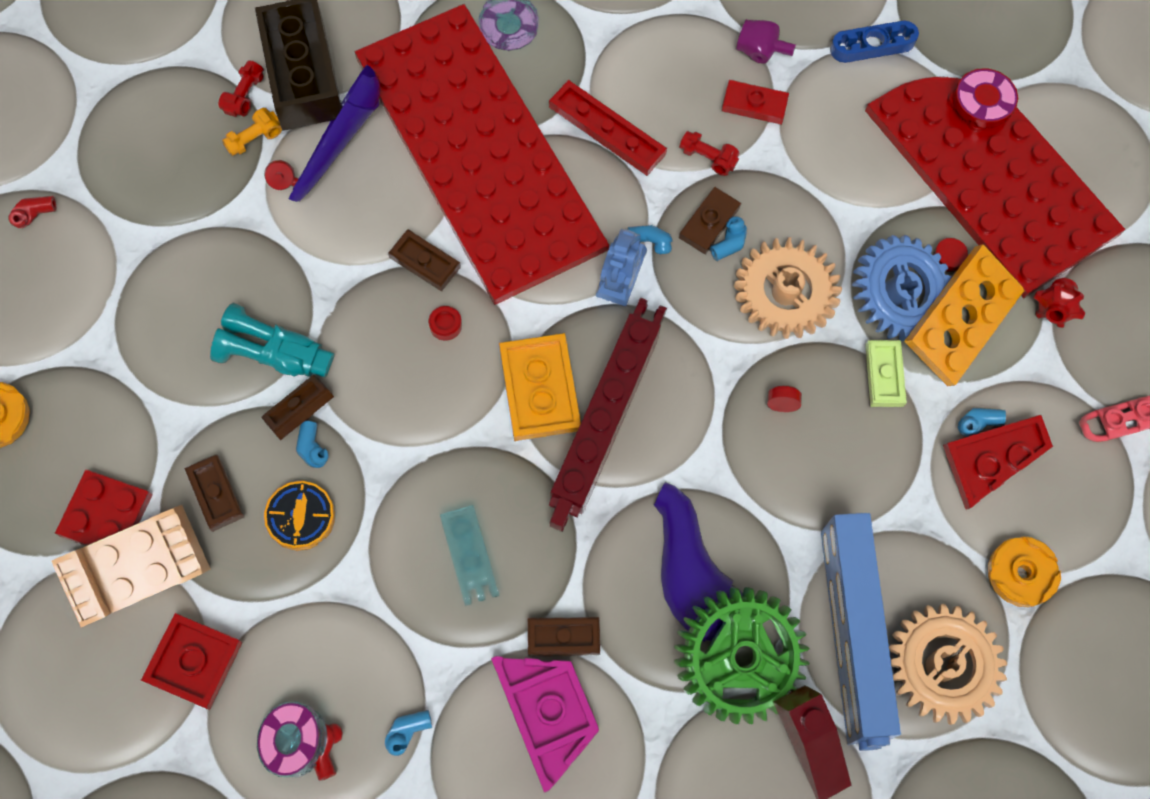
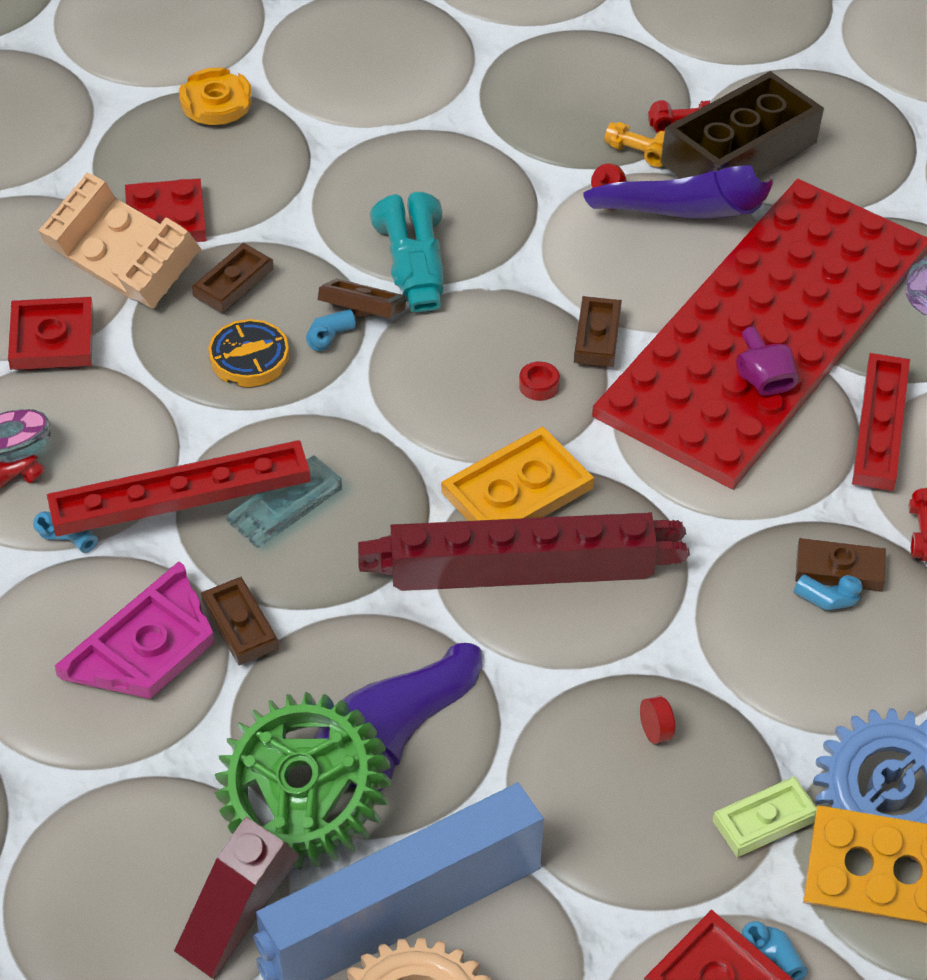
camera: 65 degrees right, 20 degrees down
(28, 209) = (439, 31): red arm -> none
(427, 631) = (178, 488): none -> red plate
(532, 170) = (766, 366): none -> magenta piece
(621, 267) = (713, 488): medium blue piece -> none
(655, 235) = (777, 513): dark azure arm -> none
(787, 288) = (803, 640): light nougat gear -> none

